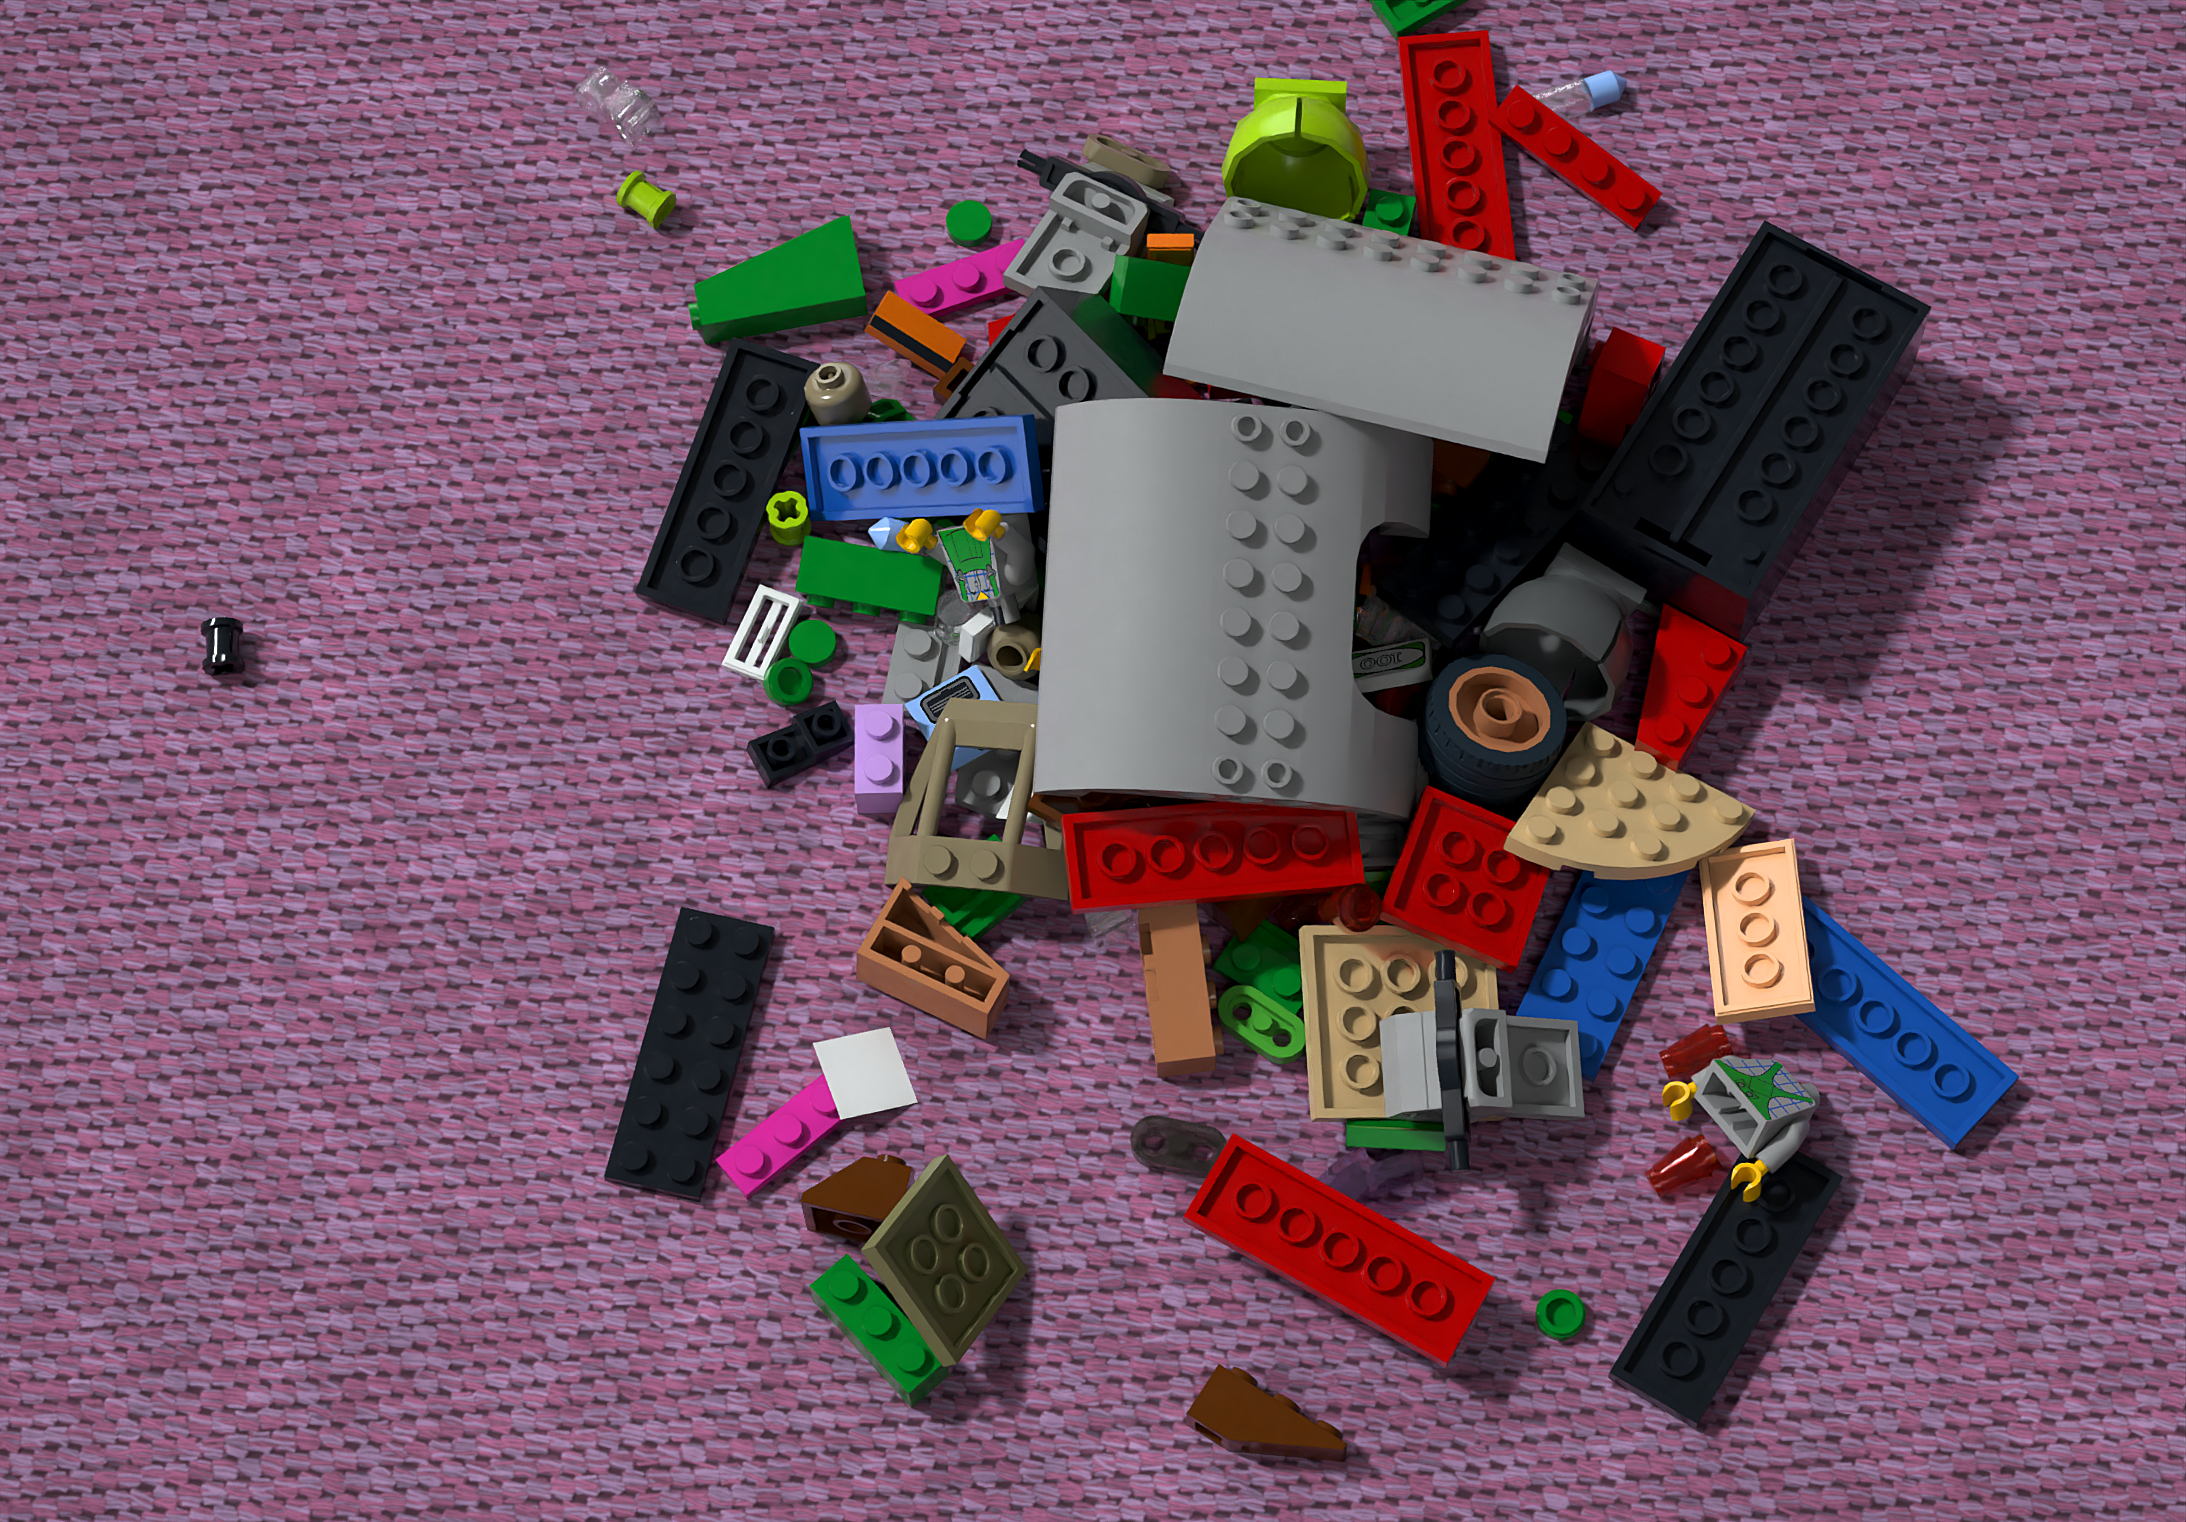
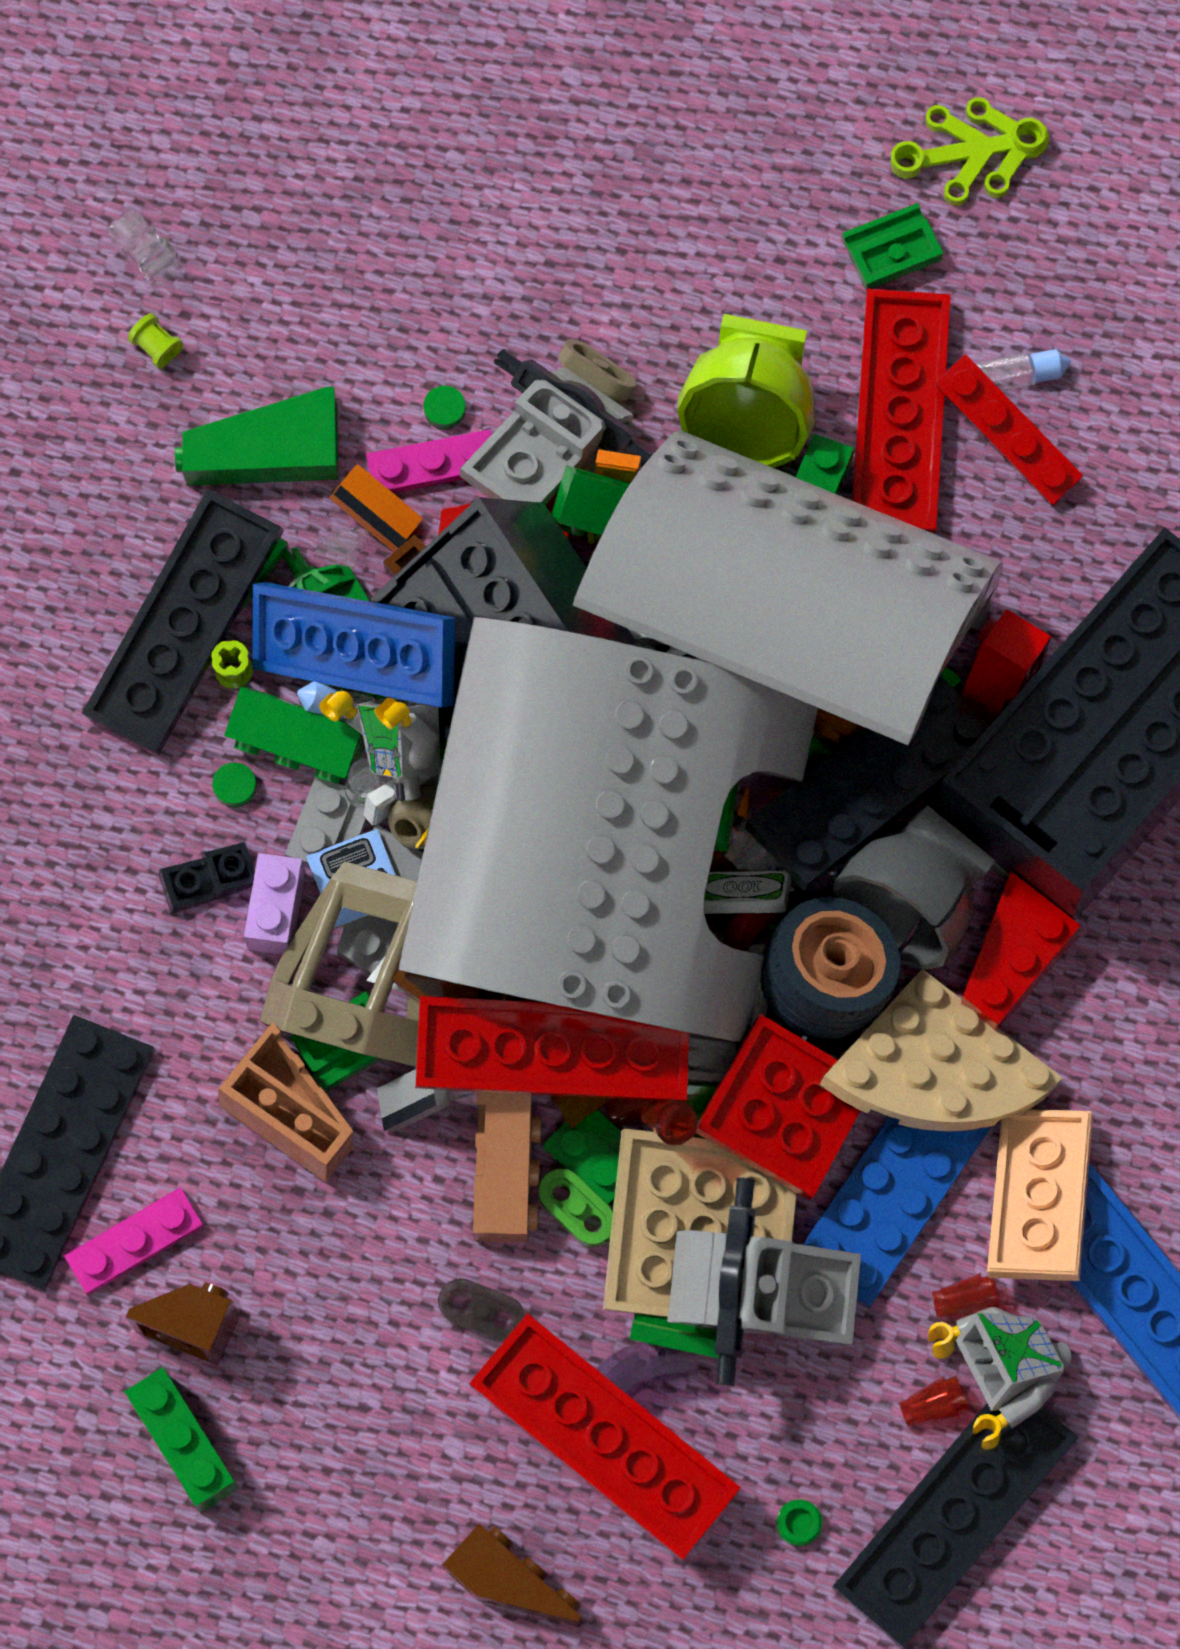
camera: 10 degrees right, 5 degrees up
(748, 668) = (171, 800): white tile -> none
(788, 682) = (205, 818): green tile -> none
(837, 394) = (293, 557): dark tan head -> none
(865, 1073) = (211, 1196): white sticker -> none
(944, 1260) = (246, 1390): olive plate -> none
(1062, 938) = (404, 1104): none -> light grey tile

